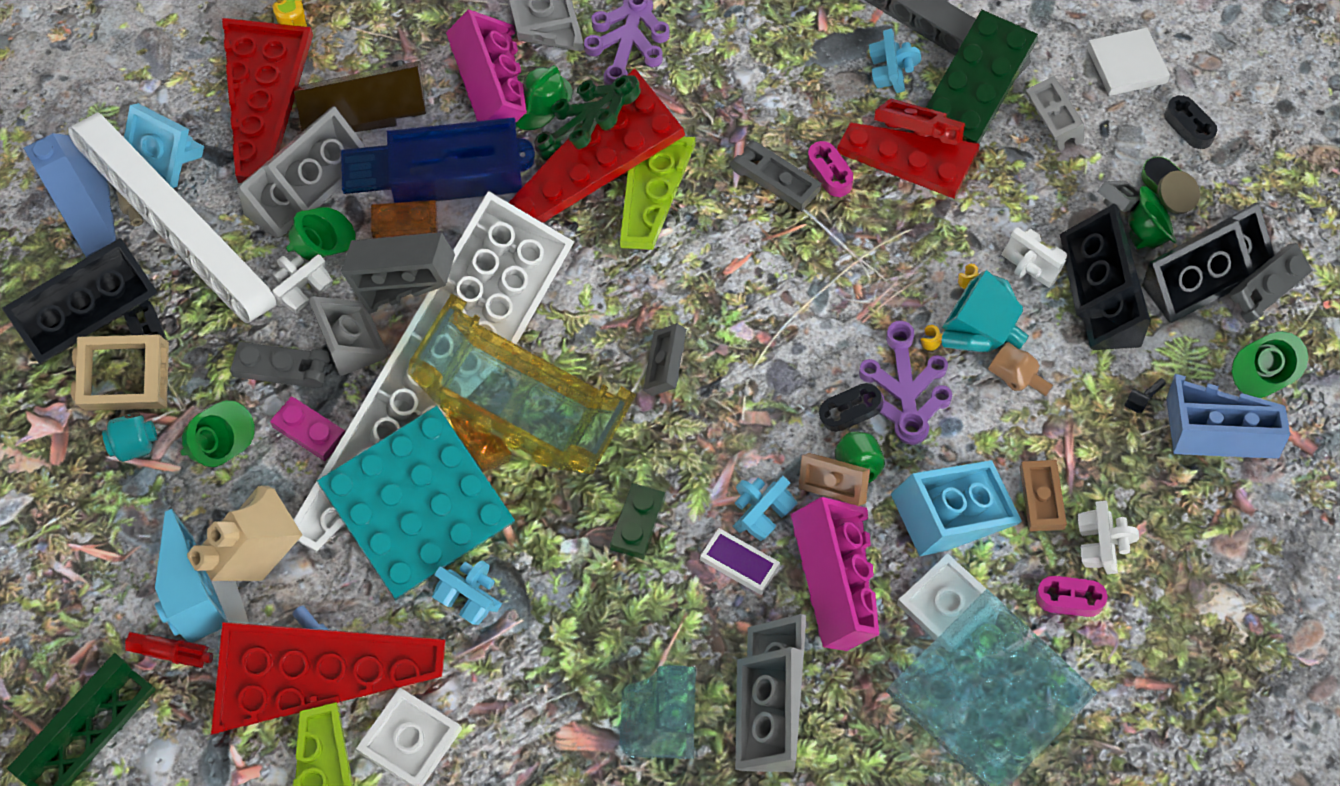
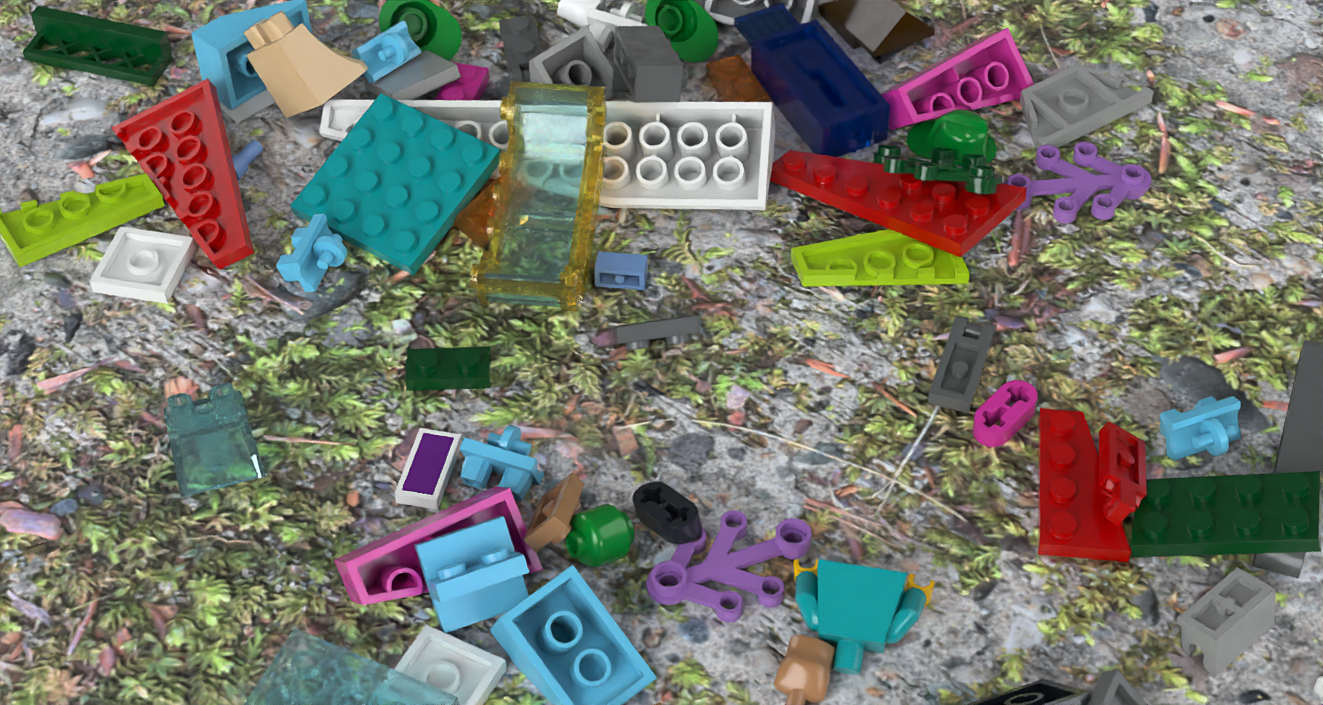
camera: 70 degrees right, 15 degrees down
(169, 649) = (189, 68): red piece -> none
(245, 465) = (386, 51): none -> medium azure hips
(280, 456) = (415, 77): none -> light grey tile
(586, 362) = (621, 270): none -> medium blue piece
(770, 696) = (264, 541): light grey slope -> none
(879, 547) = (473, 573): none -> medium azure bracket
(1033, 257) = (977, 644): white hips -> none

